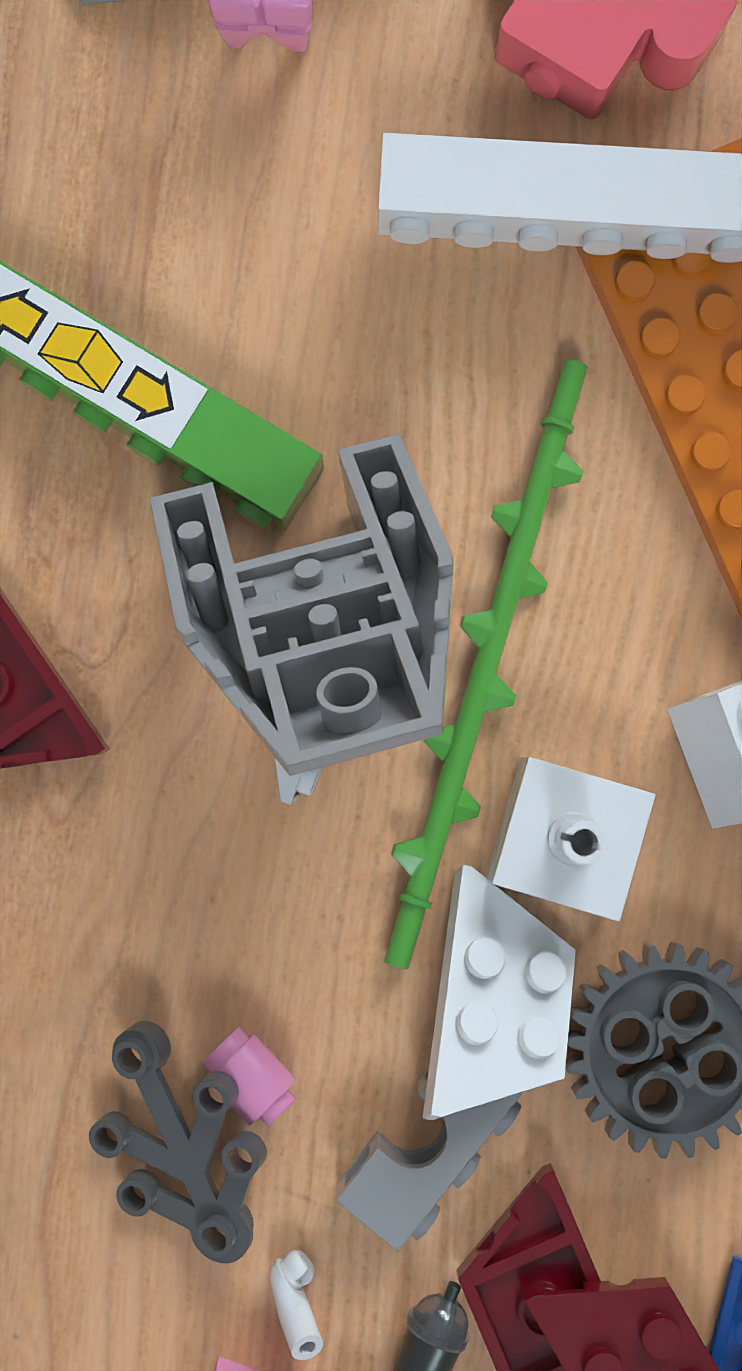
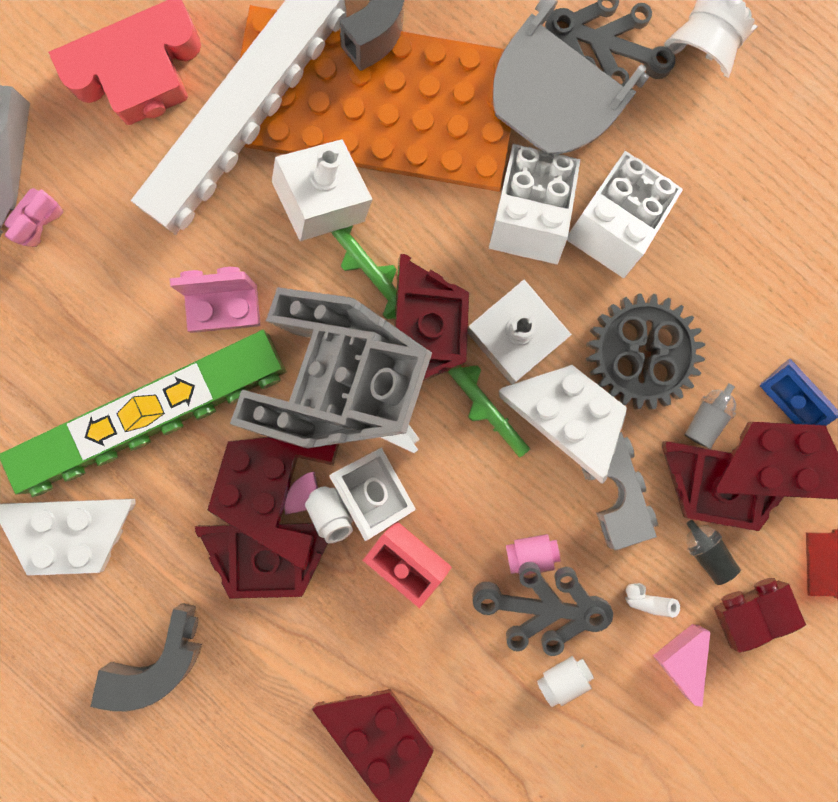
camera: 55 degrees left, 0 degrees up
(73, 600) = (254, 490): none -> dark red wing
(93, 1251) = (565, 681): none -> white brick
(111, 734) = (329, 514): none -> white brick
(113, 900) = (407, 564): none -> coral brick
(118, 675) = (299, 493): none -> bright pink tile
(185, 777) = (372, 493): none -> white slope
(323, 361) = (218, 299): none -> bright pink bracket
(508, 691) = (432, 315): none -> dark red wing
(588, 401) = (321, 189): none -> white brick
(637, 1216) = (712, 416): none -> light grey piece

